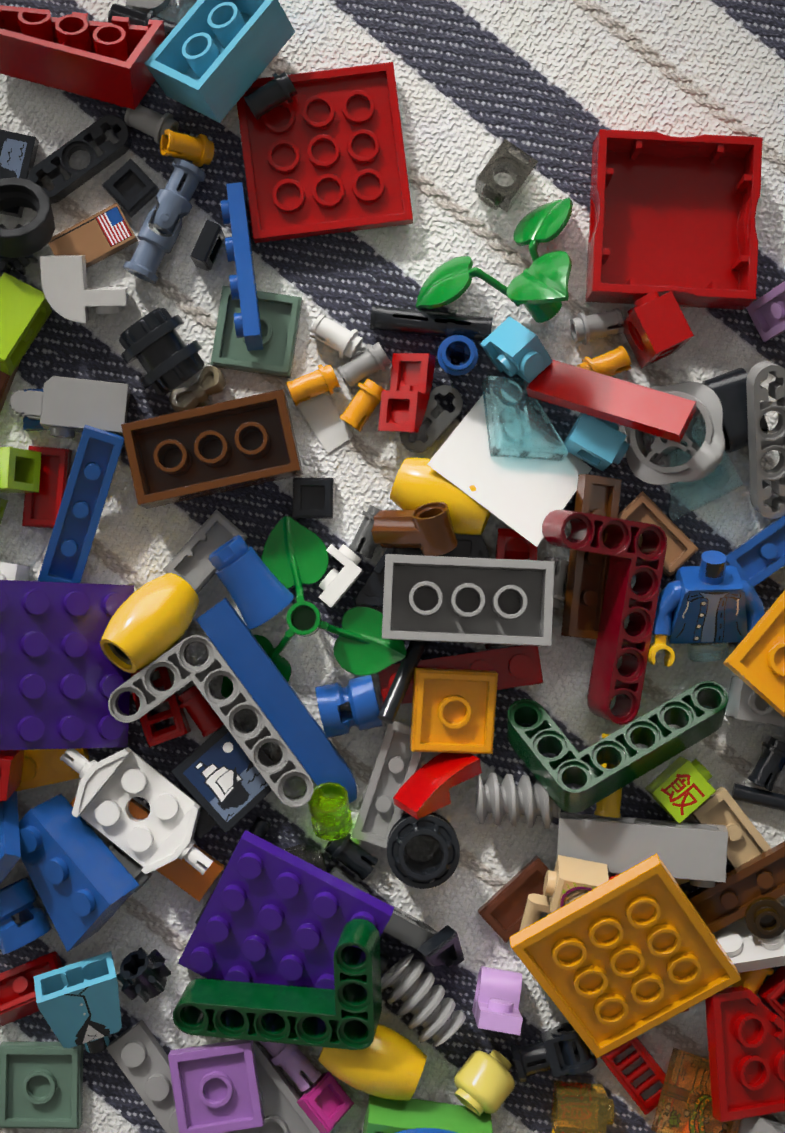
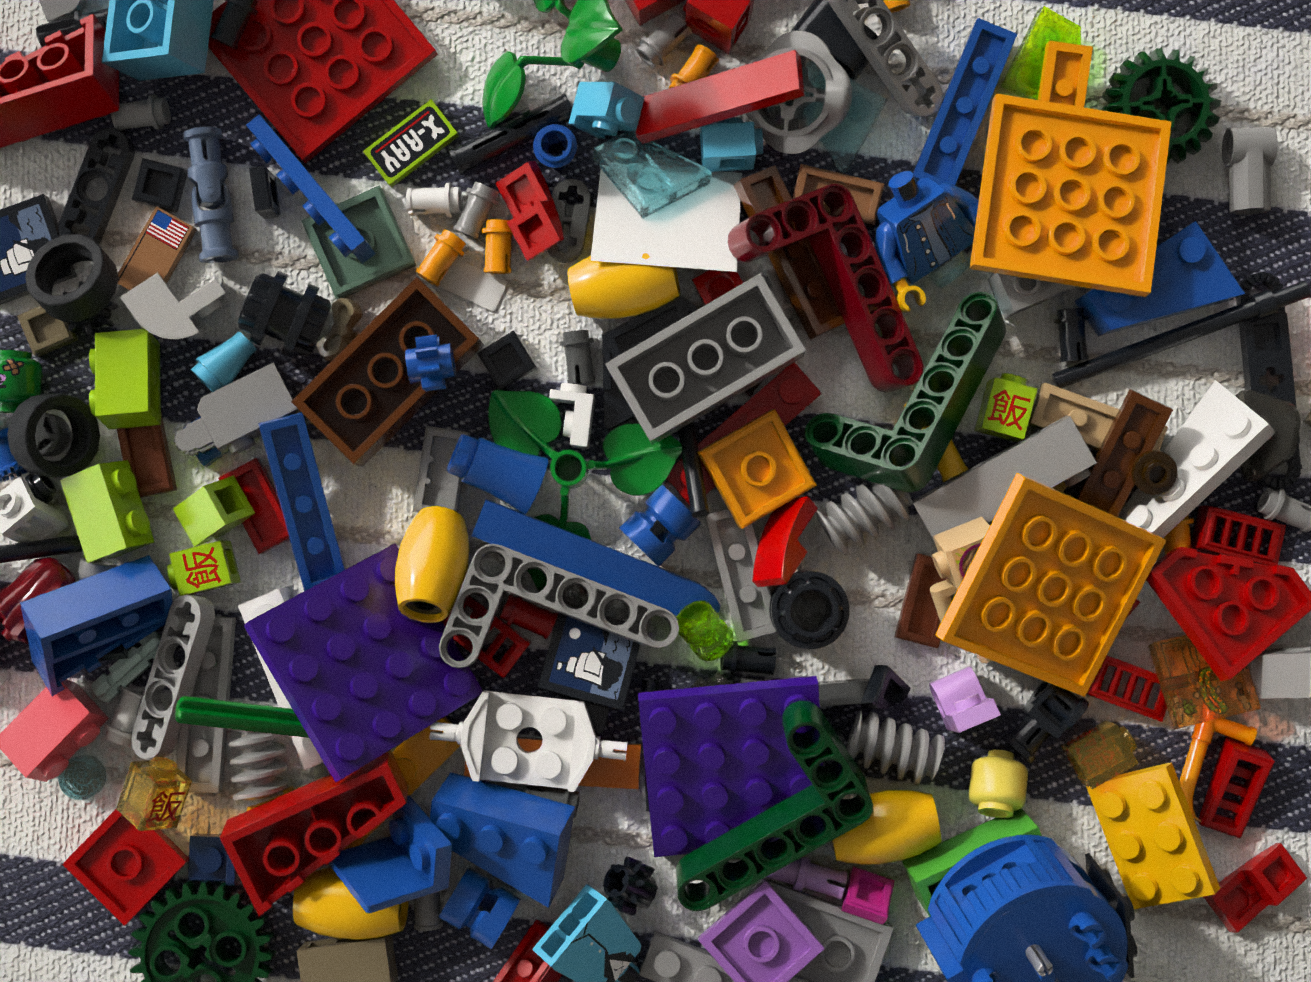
camera: 30 degrees left, 0 degrees up
(90, 358) = (223, 362): none -> medium azure cone
(187, 147) = (187, 115): light orange pin -> none
(248, 465) = (430, 362): none -> blue gear
(347, 280) = (411, 143): none -> tile
(423, 528) = (625, 319): reddish brown piece -> none

